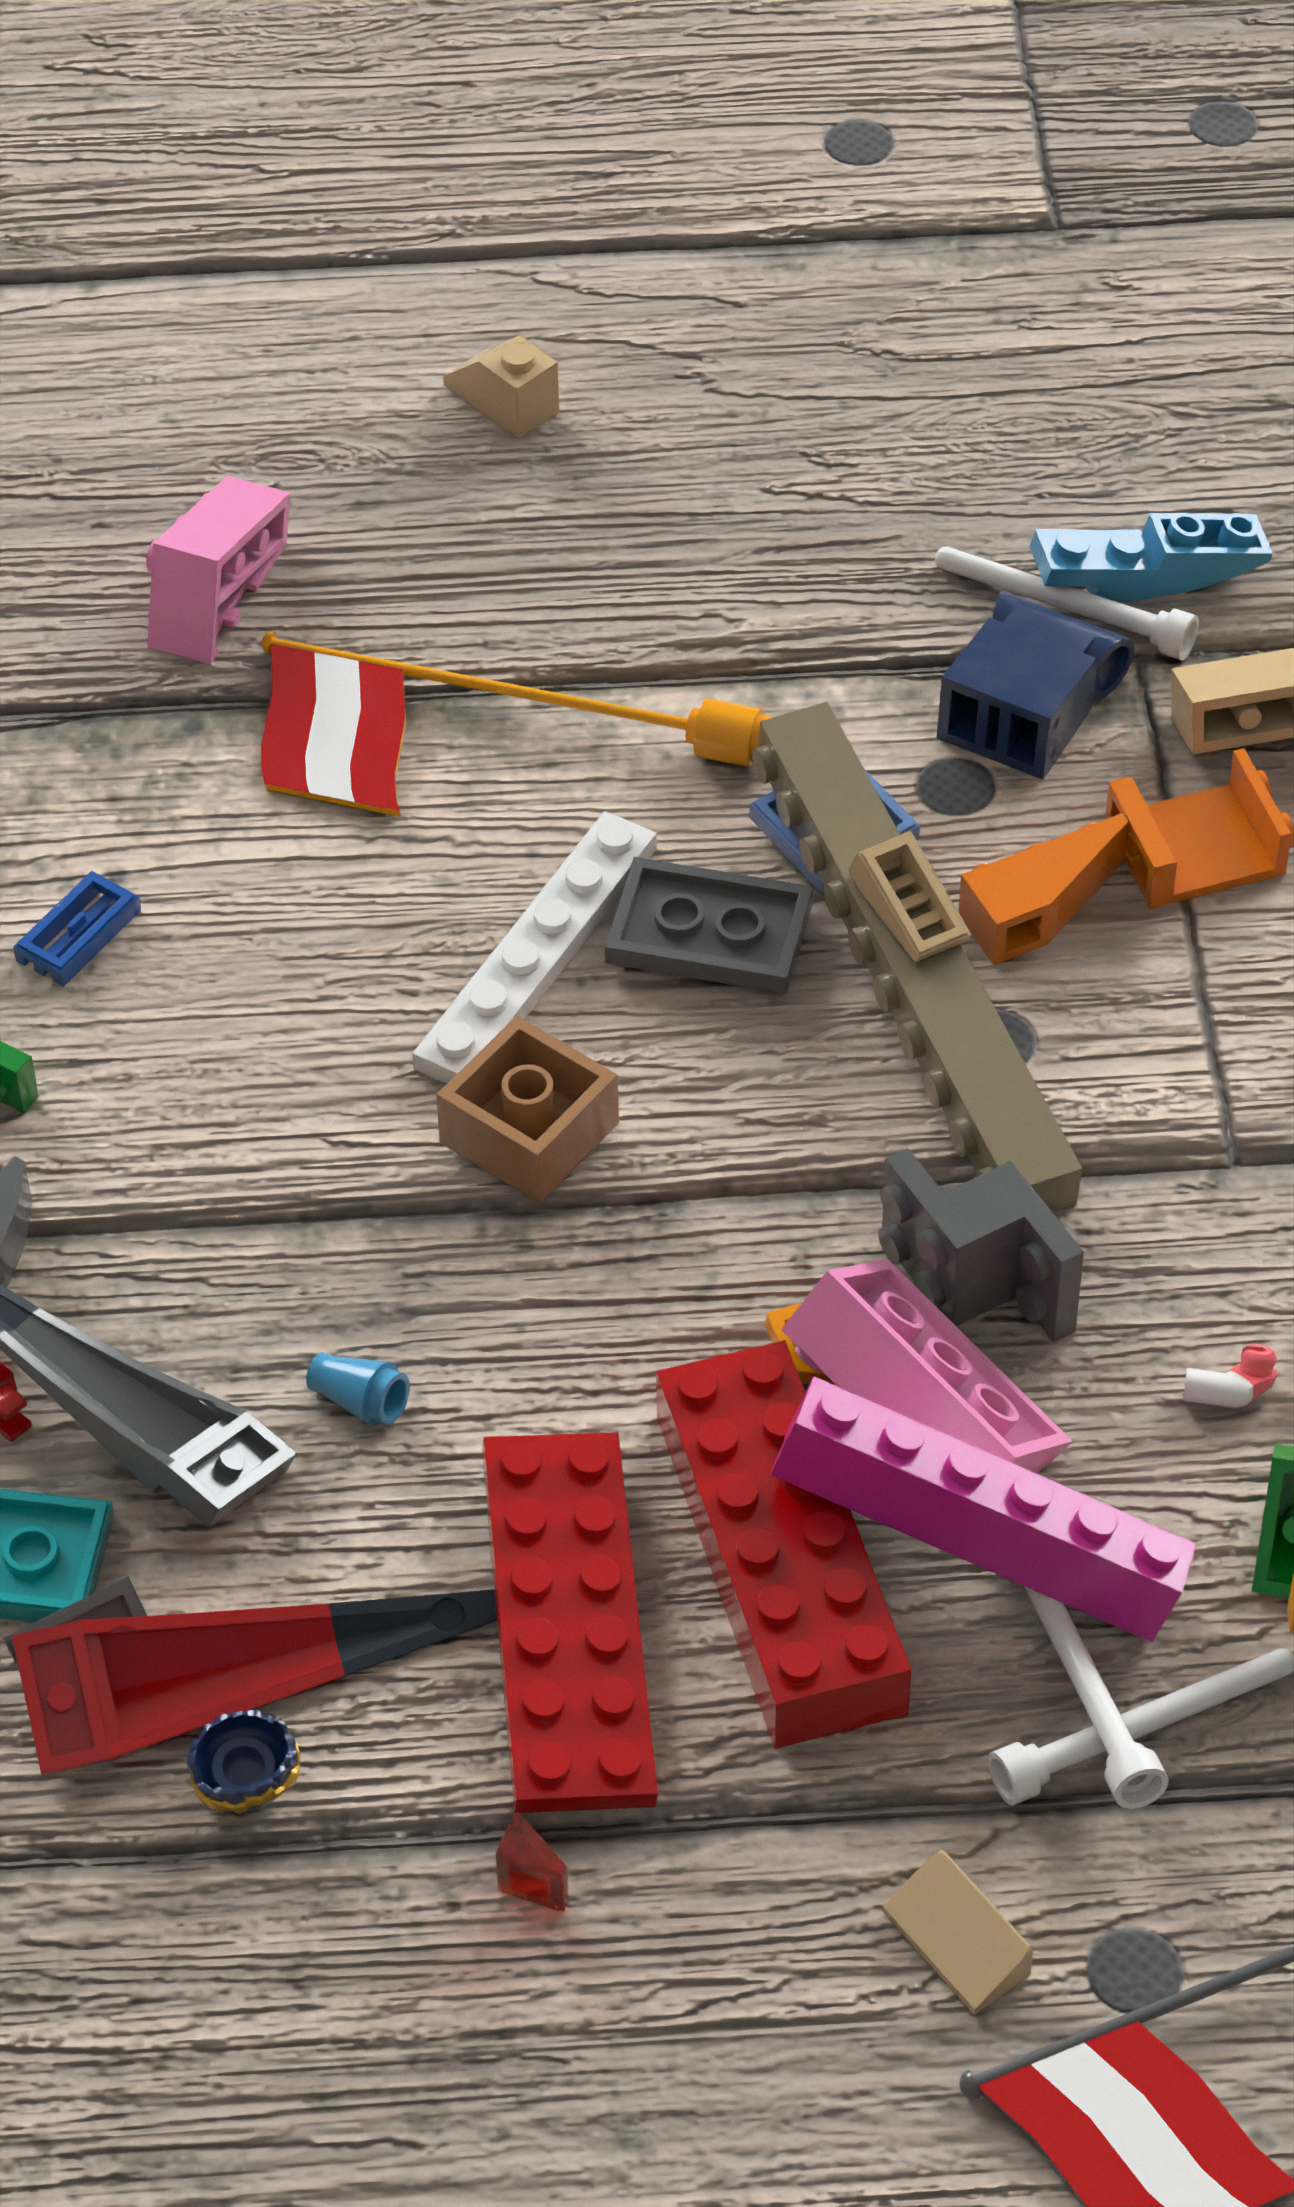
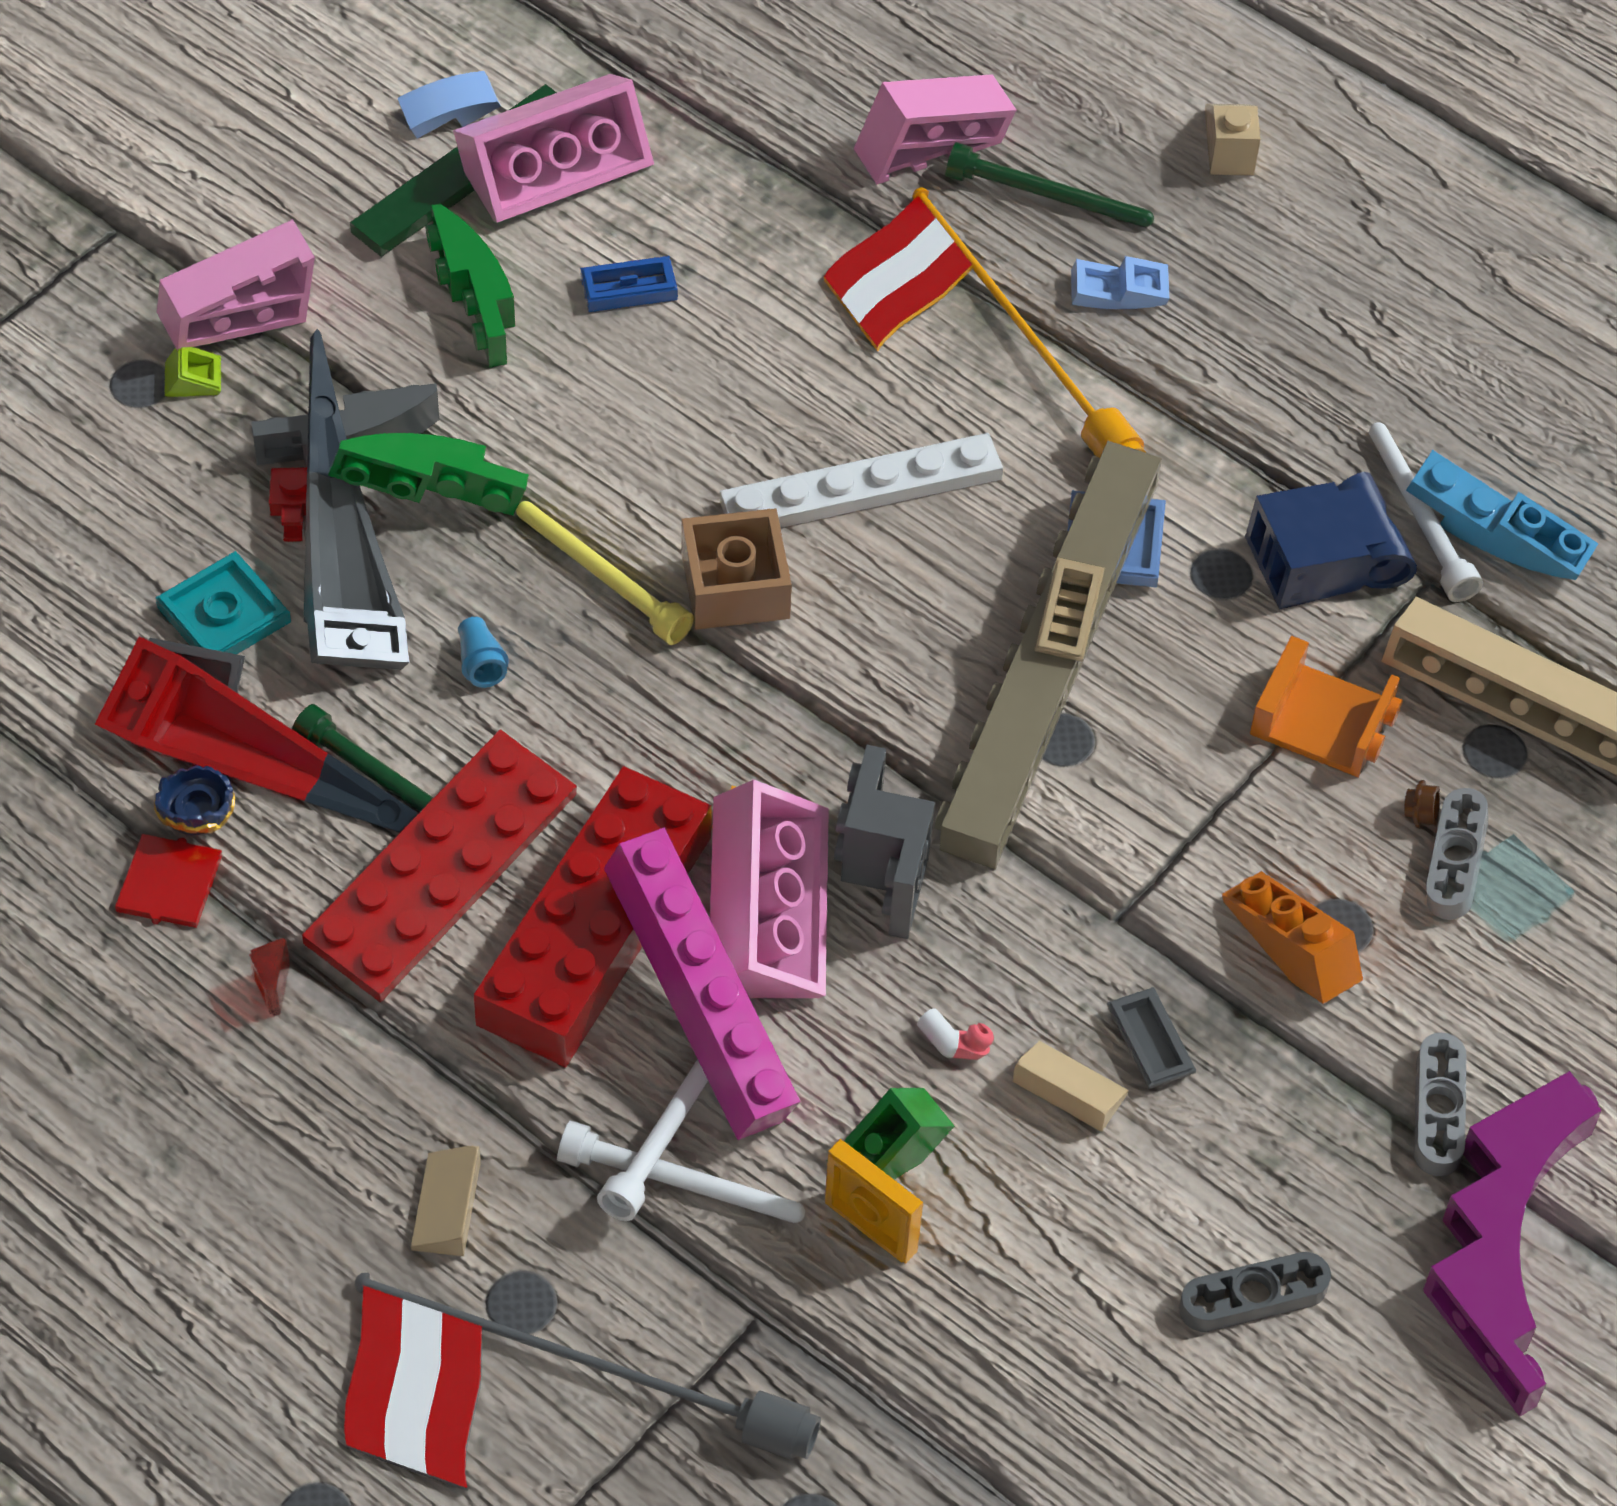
camera: 40 degrees right, 5 degrees up
(99, 1243) = (420, 462): none -> green slope
(284, 1589) = (319, 729): none -> dark green piece
(285, 581) = (966, 164): none -> dark green piece
(297, 1869) = (169, 881): none -> red piece
(503, 1211) = (669, 620): none -> light yellow piece
(567, 590) = (1130, 286): none -> light blue slope
(709, 925) = (969, 544): dark grey plate -> none
(1036, 892) = (1183, 670): orange slope -> none

